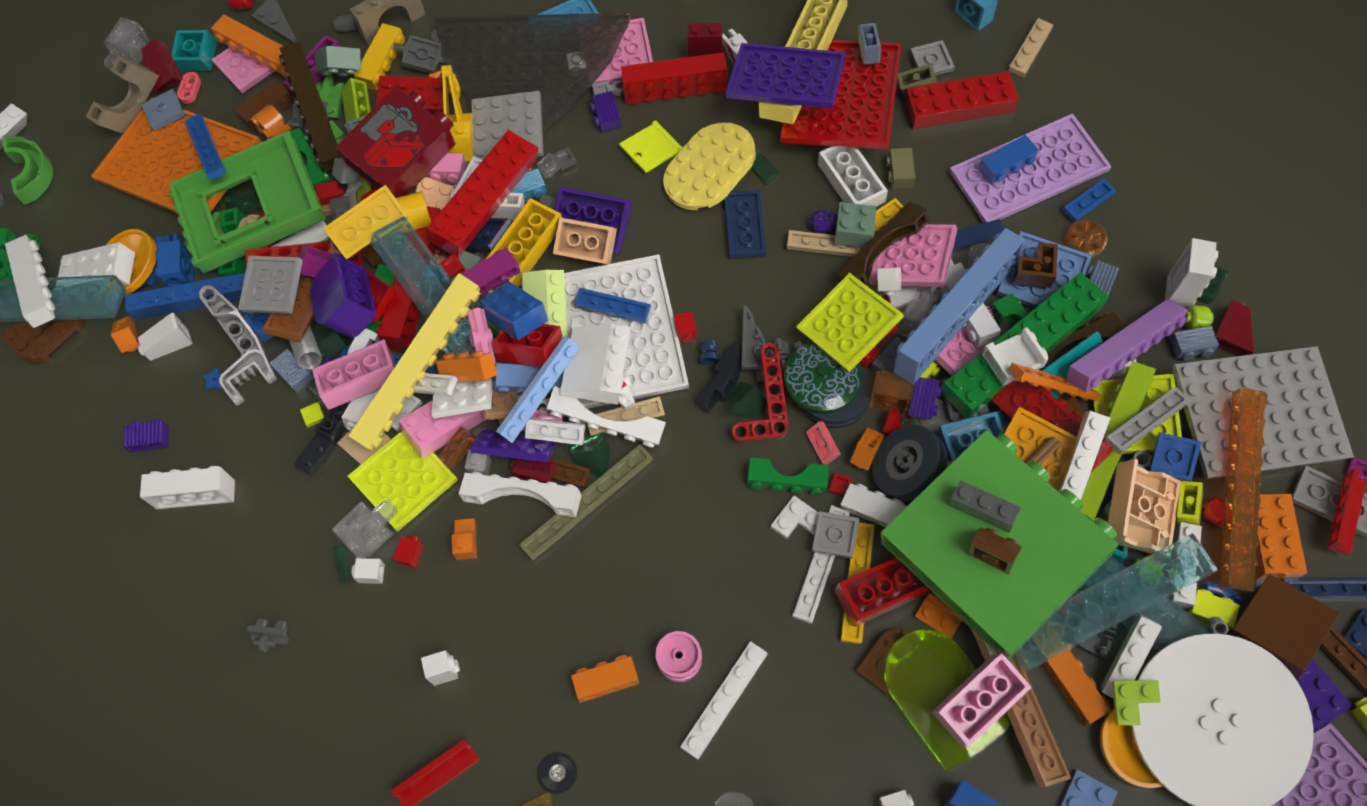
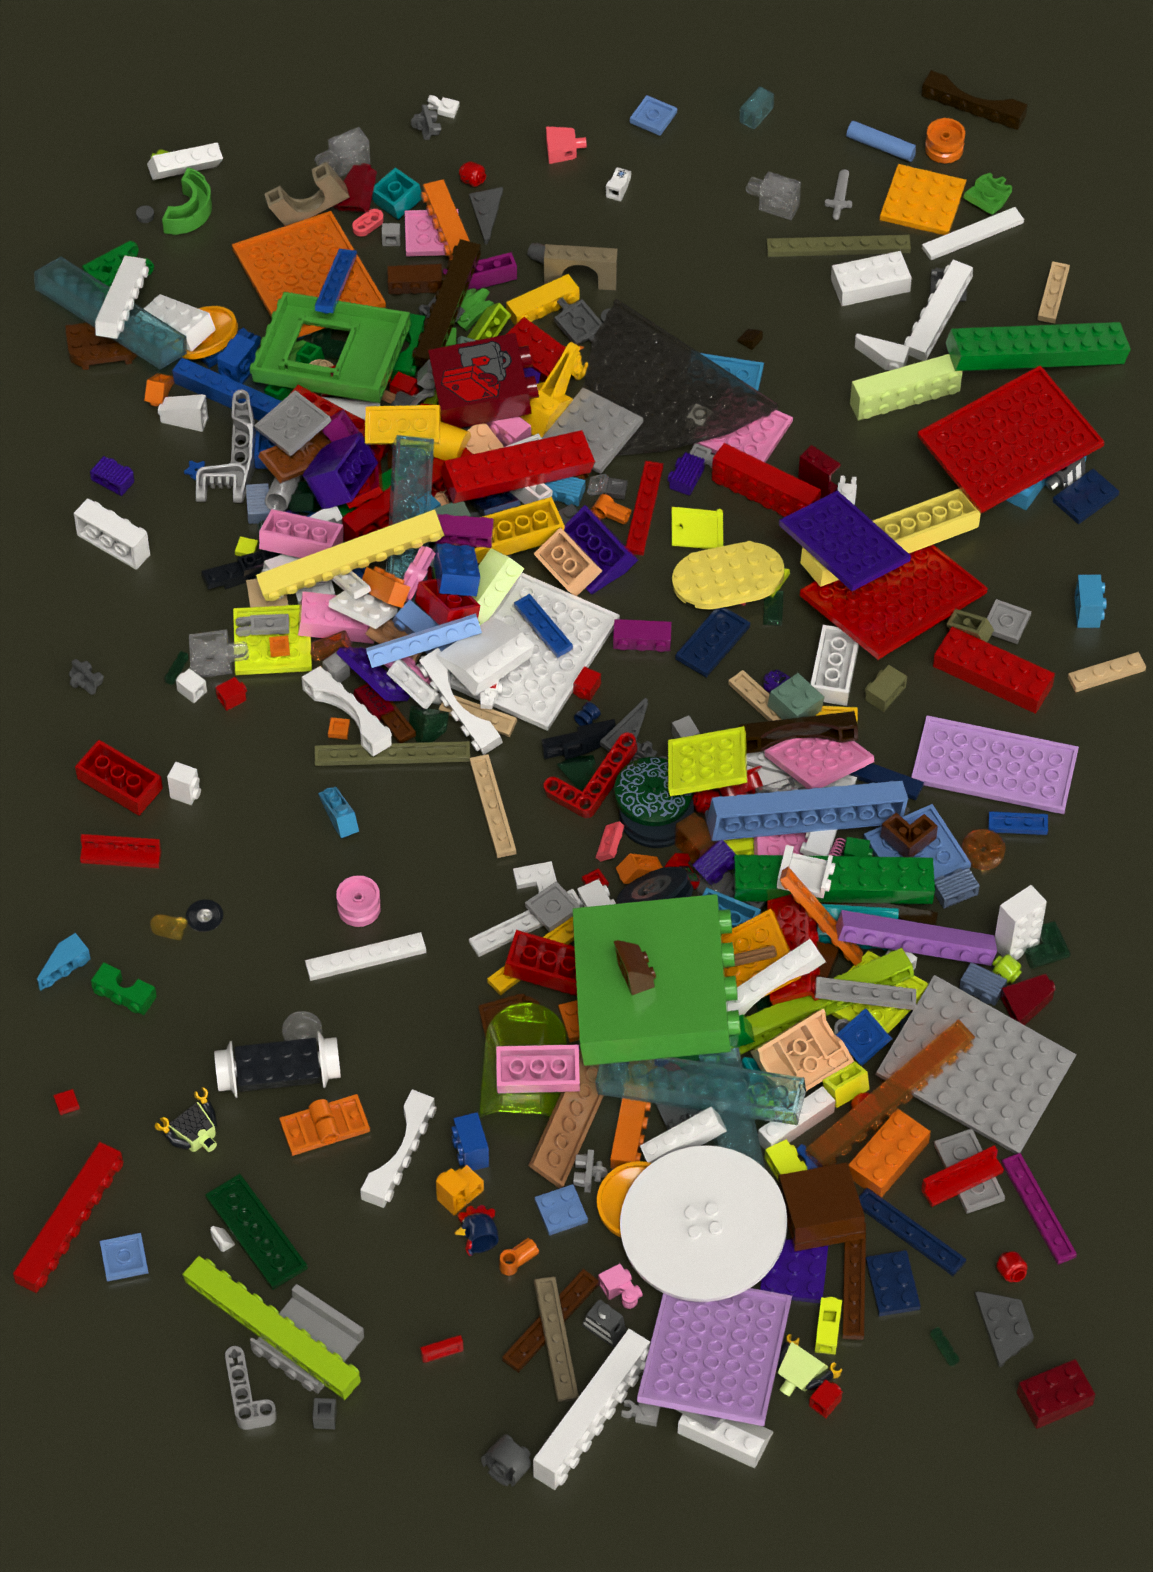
camera: 35 degrees right, 10 degrees down
(163, 110) = (331, 228): sand blue plate -> none
(216, 84) = (391, 234): none -> light grey plate
(270, 122) = (405, 296): orange brick -> none
(337, 60) = (501, 281): sand green brick -> none
(377, 706) = (118, 777): none -> red brick
(387, 472) = (263, 624): none -> light grey hinge
(416, 480) = (279, 646): none -> orange plate
(452, 266) = (442, 504): red plate -> none
(464, 539) = (278, 714): orange arch -> none
(524, 513) = (339, 728): none -> orange plate
(571, 178) = (608, 508): none -> orange piece
(589, 586) = (339, 812): none -> dark azure slope
(597, 158) = (644, 507): none -> red tile
(605, 678) = (293, 878): orange brick -> none
(690, 258) = (642, 635): none -> magenta brick
(706, 484) = (492, 806): none -> tan plate
(794, 310) = (684, 727): none -> light grey brick
(812, 479) = (575, 859): green arch -> none
(869, 43) = (952, 566): sand blue brick -> none
(889, 280) = (774, 757): white brick -> none
(985, 506) = (658, 937): dark grey brick -> none
(1008, 159) = (977, 740): blue brick -> none
(1080, 744) = (585, 1179): none -> light grey hips
(1128, 695) = (653, 1153): lime plate -> none
(1214, 621) = (771, 1166): light grey piece -> none

